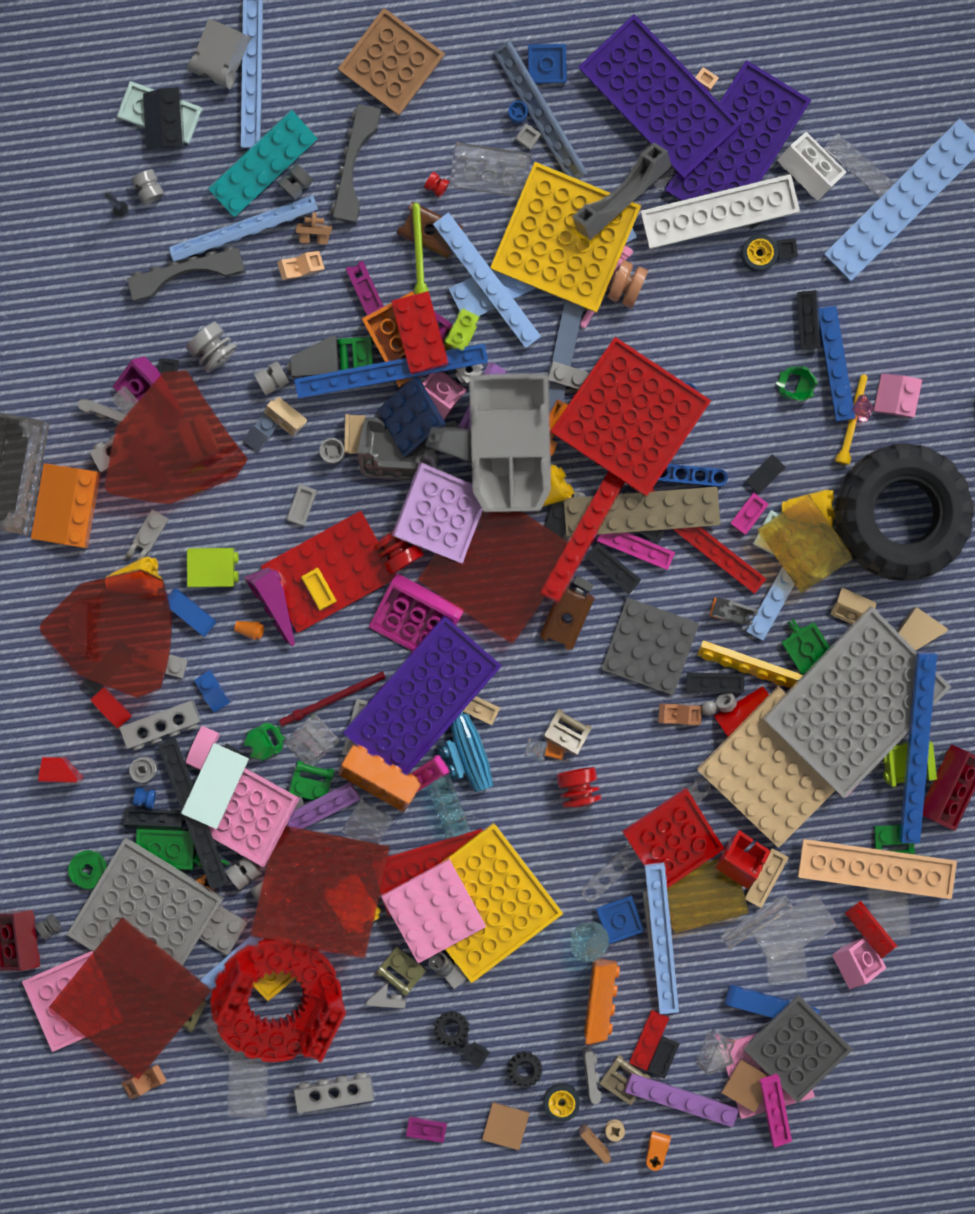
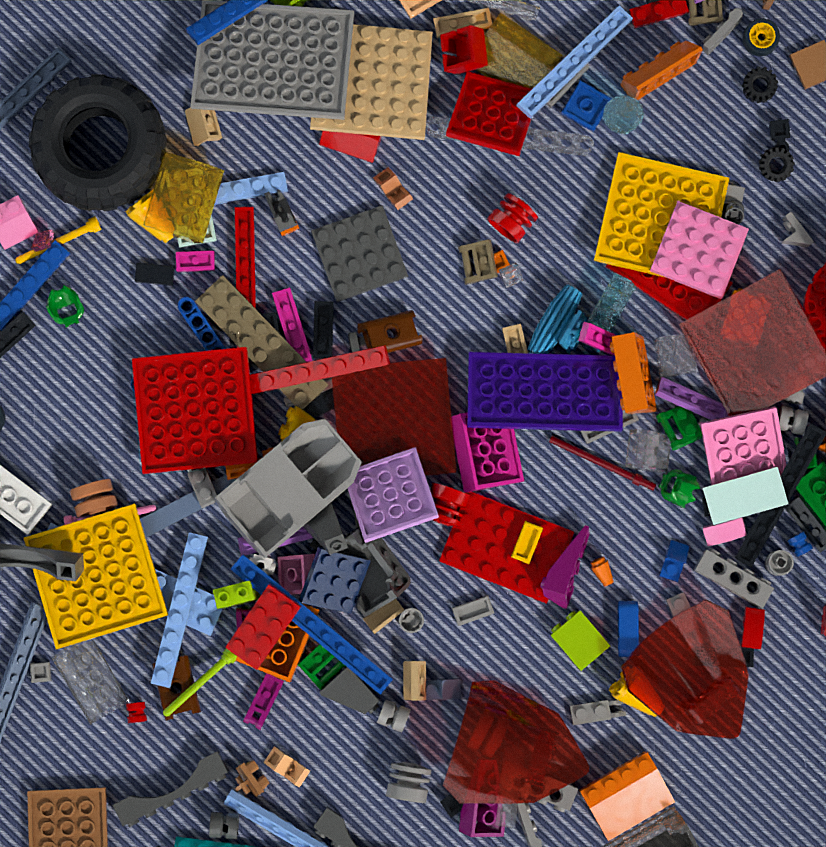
camera: 130 degrees left, 5 degrees down
(405, 966) = (758, 239): olive plate -> none
(518, 108) = (25, 698): blue wheel -> none
(715, 682) = (346, 181): black plate -> none
(725, 702) = (369, 170): light grey plate -> none
(748, 665) = (311, 165): yellow plate -> none
(805, 645) = (261, 135): green plate -> none
(920, 628) = (177, 61): tan slope -> none

